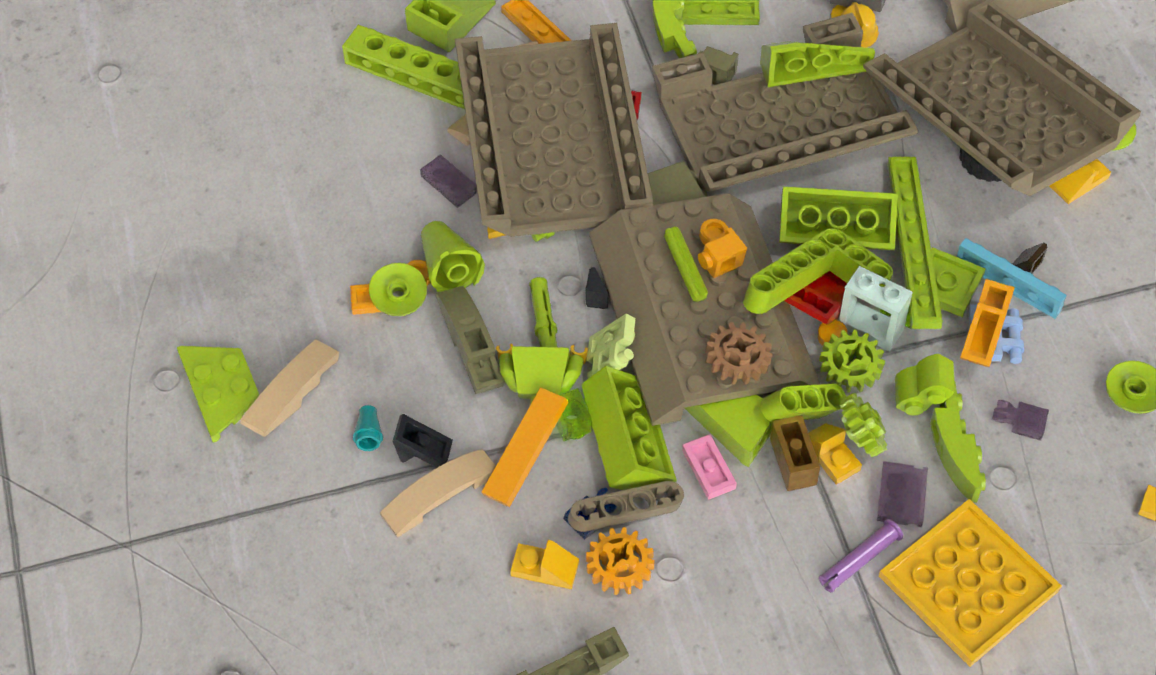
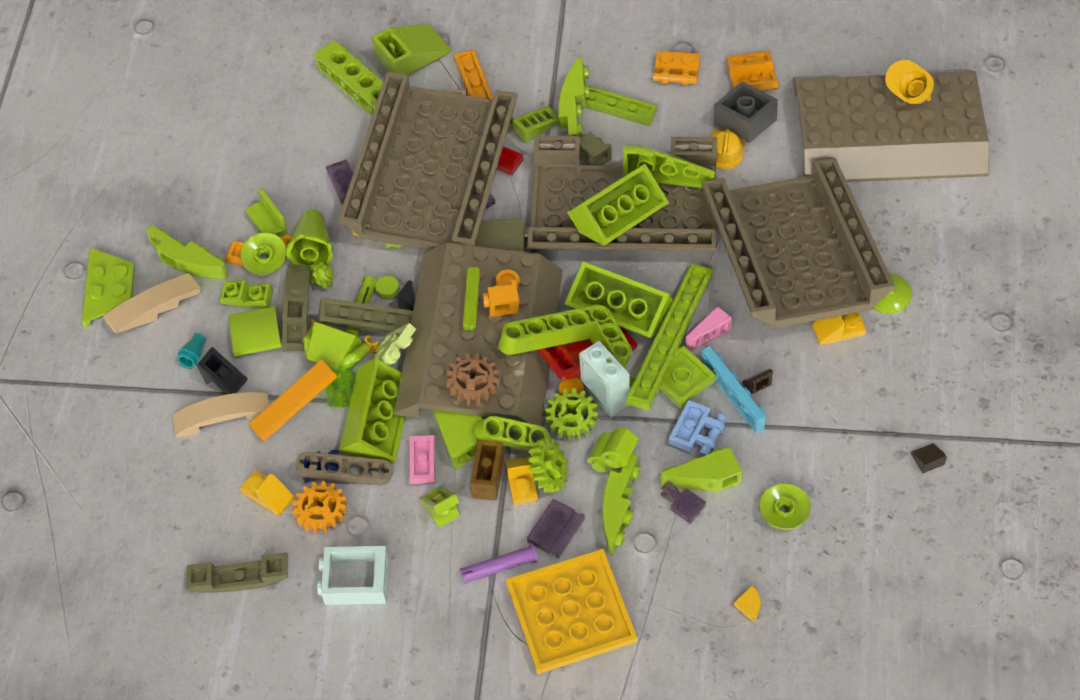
camera: 25 degrees right, 0 degrees up
(311, 322) = (186, 259): none -> lime slope
(377, 244) = (266, 216): none -> lime panel
(392, 346) = (241, 294): none -> lime slope
(432, 382) = (254, 331): none -> lime slope
(482, 292) = (322, 275): none -> lime plant
(559, 323) = (362, 315): none -> olive plate
(561, 284) = (387, 287): none -> lime tile
(642, 58) = (528, 133): none -> lime slope
(739, 639) = (354, 595): none -> light aqua window
(758, 510) = (441, 505): none -> lime slope
(790, 115) = (619, 206): none -> lime slope
(951, 217) = (709, 328): none -> bright pink slope
(987, 323) = (688, 418): light orange slope -> none
(1035, 378) = (708, 473): none -> lime slope

